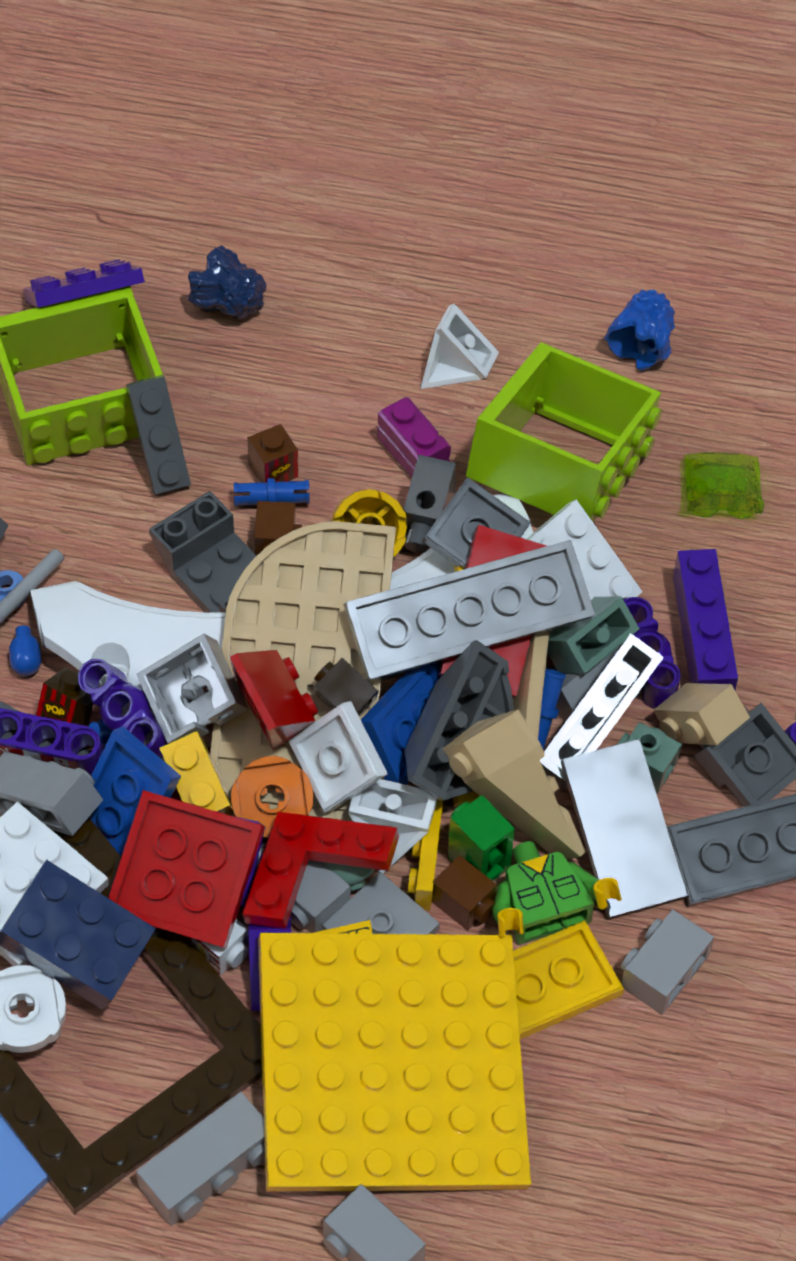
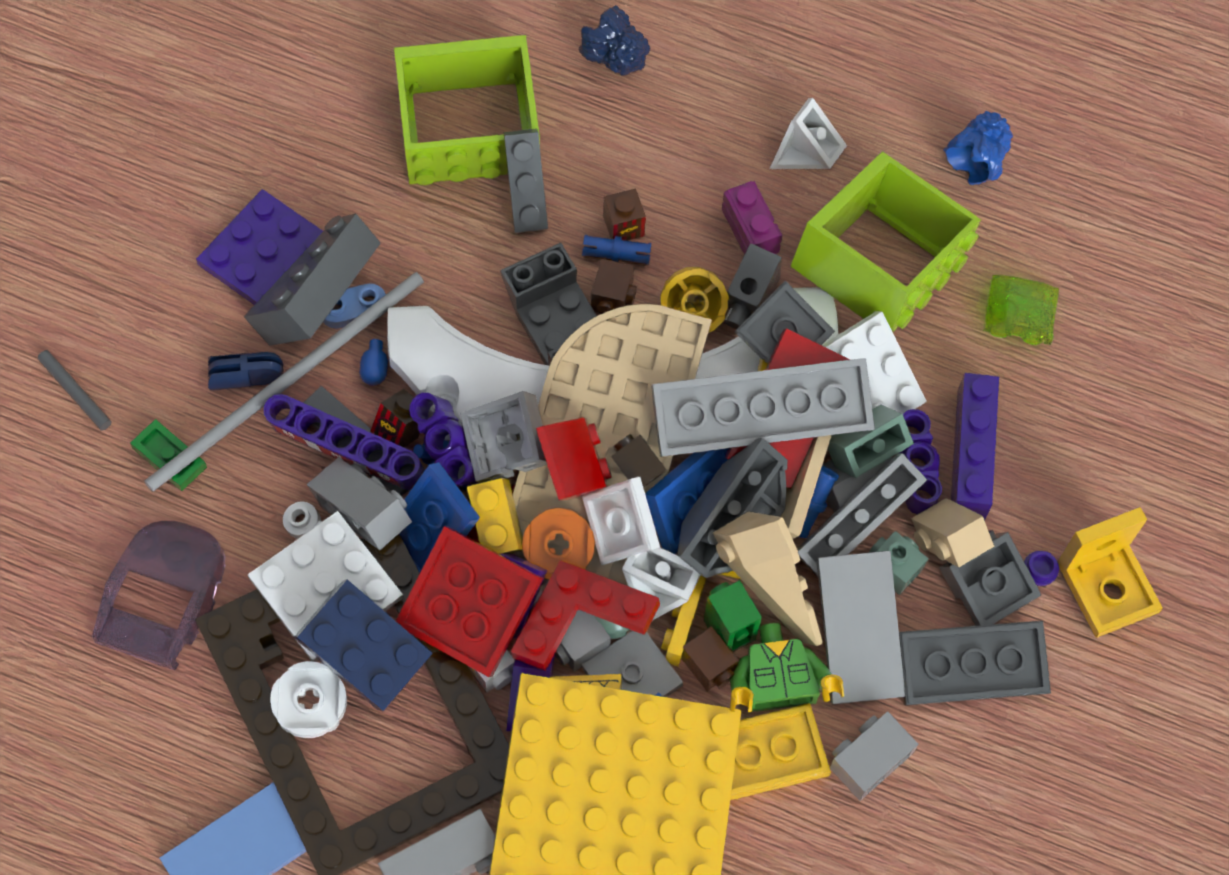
camera: 10 degrees right, 10 degrees up
(82, 283) = (486, 22): dark purple plate -> none

